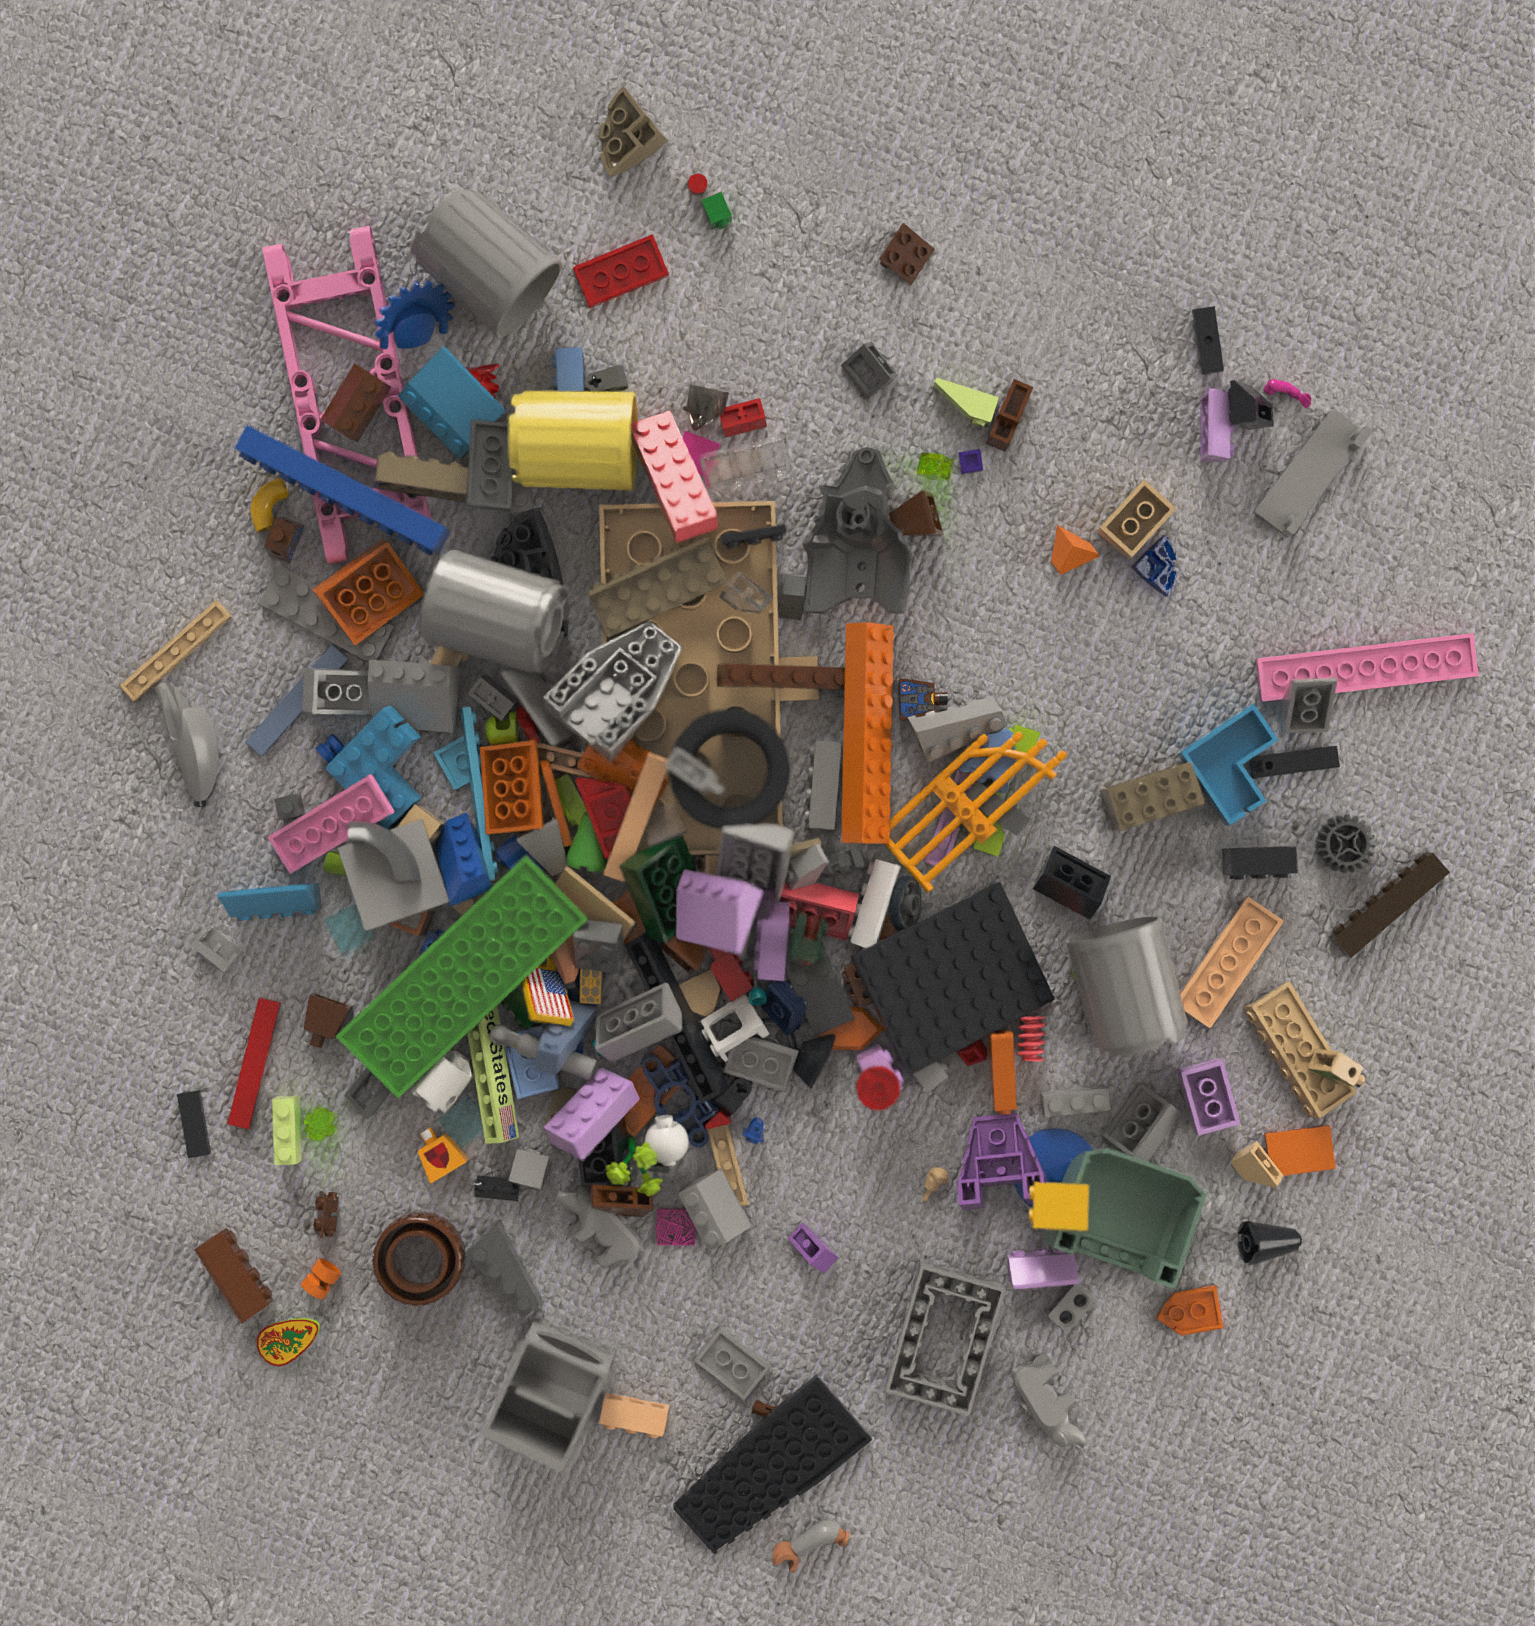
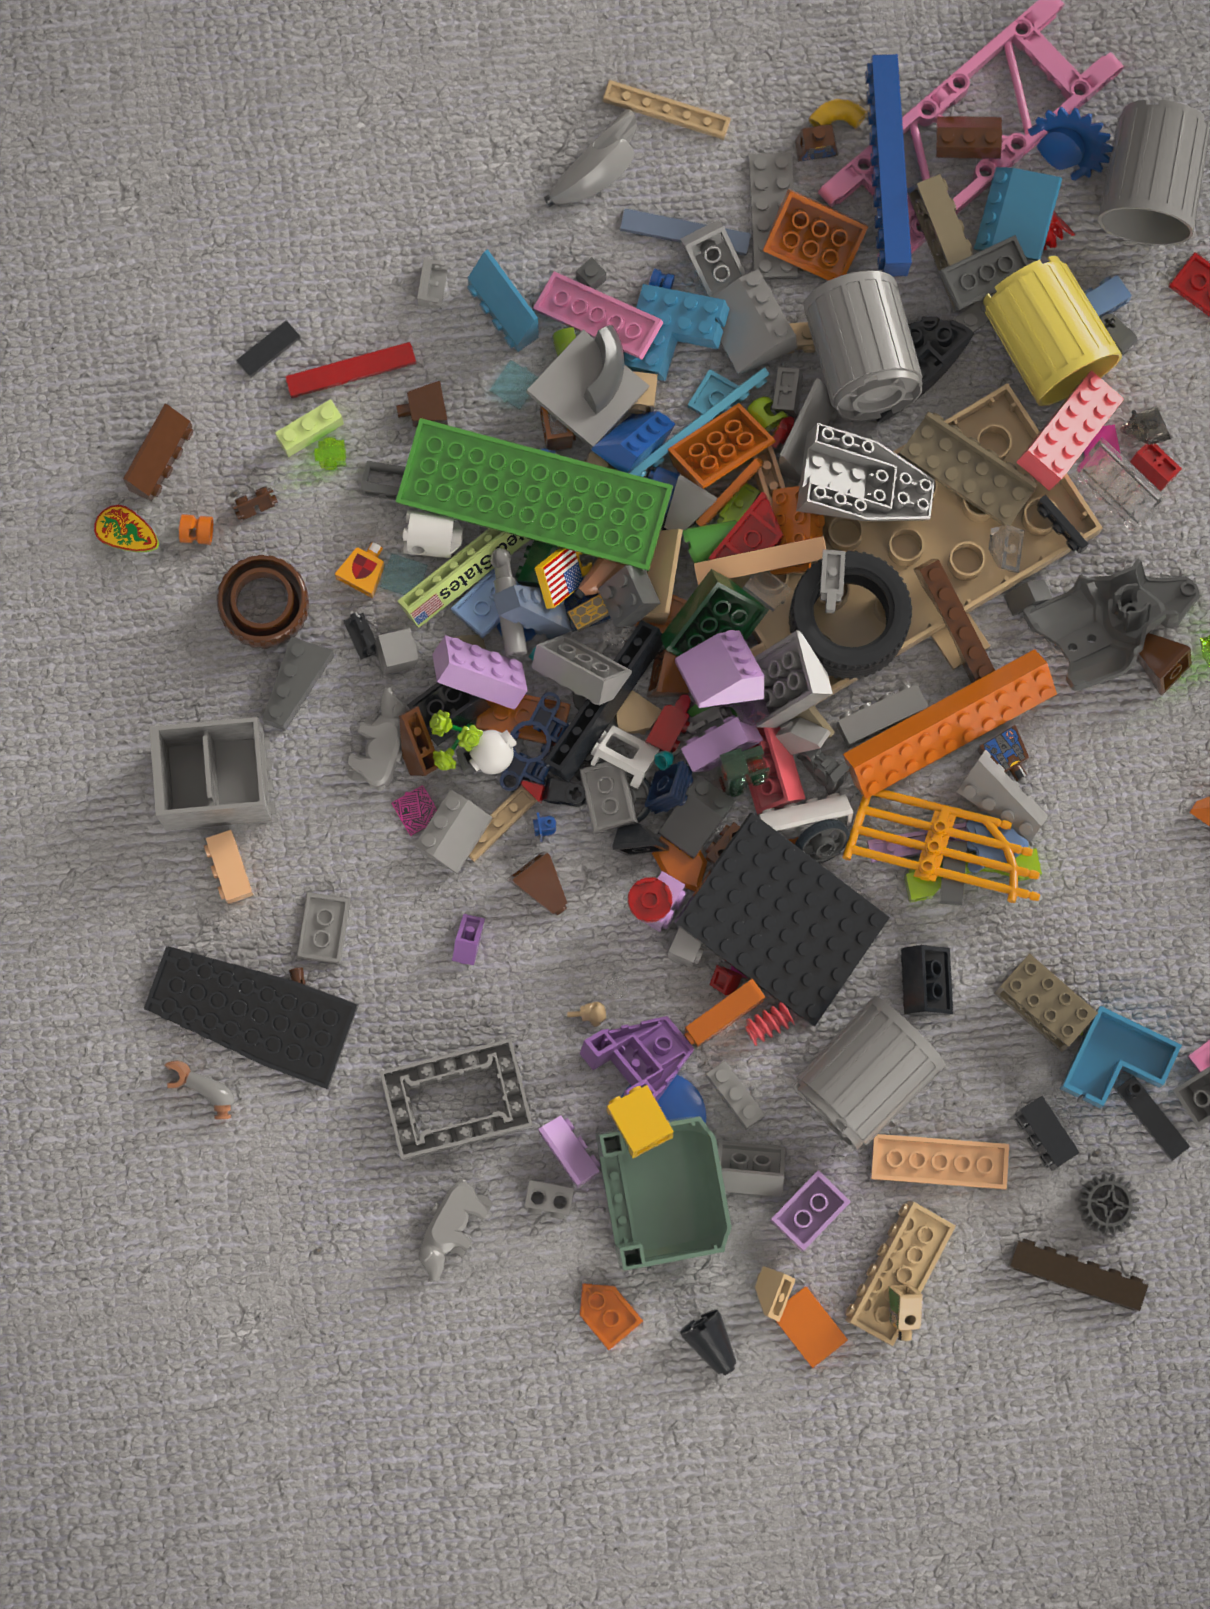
camera: 60 degrees right, 10 degrees down
(801, 1161) = (541, 883): none -> reddish brown slope

